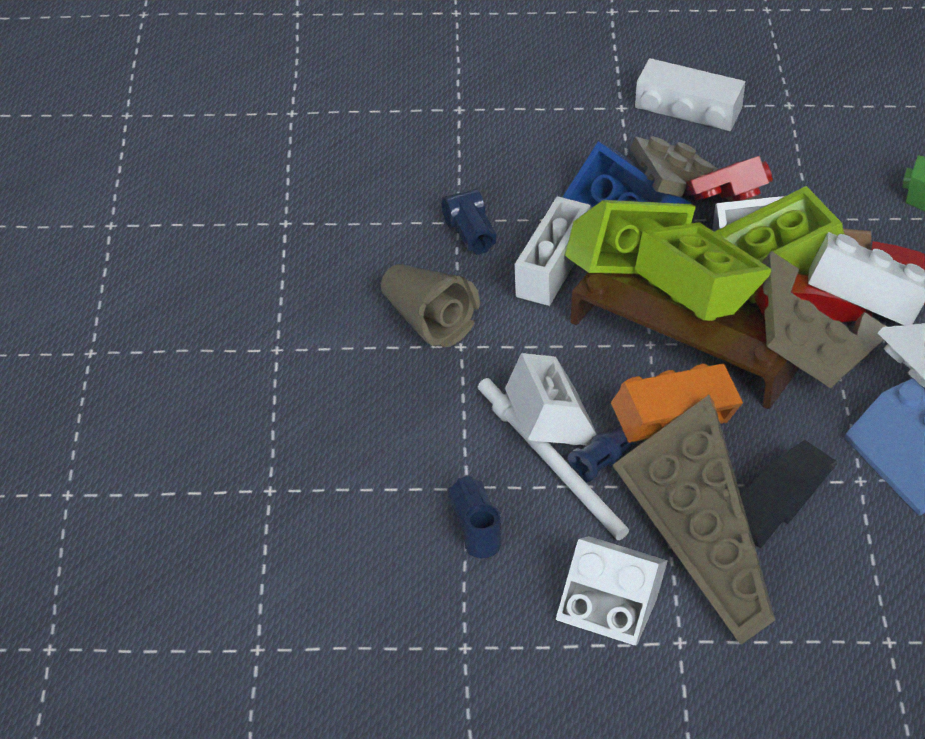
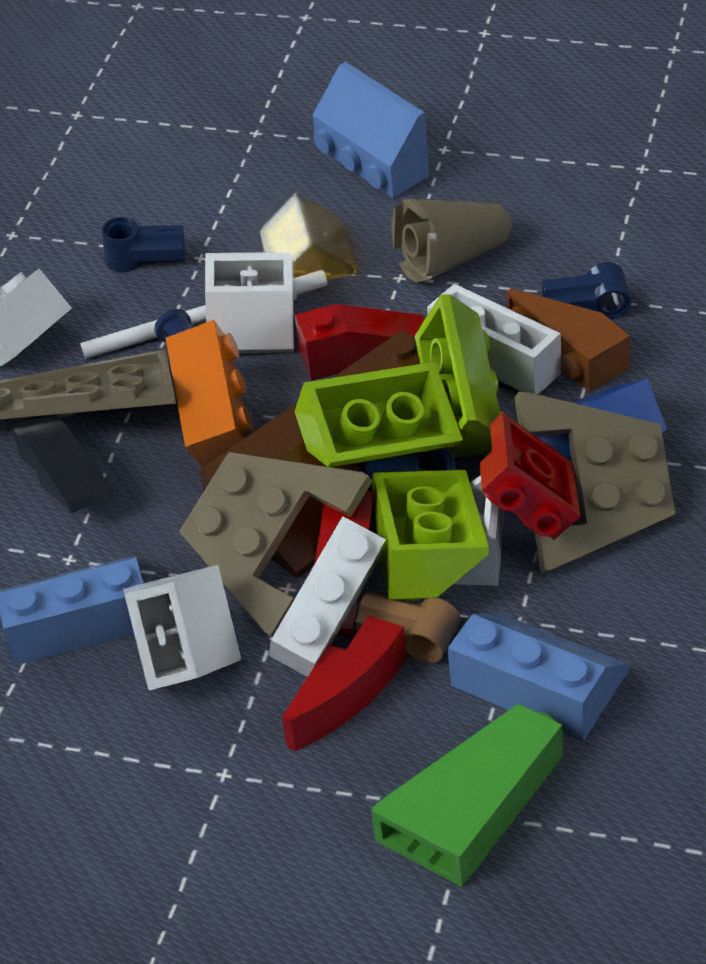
camera: 110 degrees right, 0 degrees up
(296, 372) = (372, 132): none -> medium blue slope
(447, 408) = (312, 236): none -> clear yellow slope
(522, 217) = (590, 342): none -> dark orange slope
(565, 338) = (342, 334): none -> red slope
(860, 184) = (528, 666): none -> medium blue slope

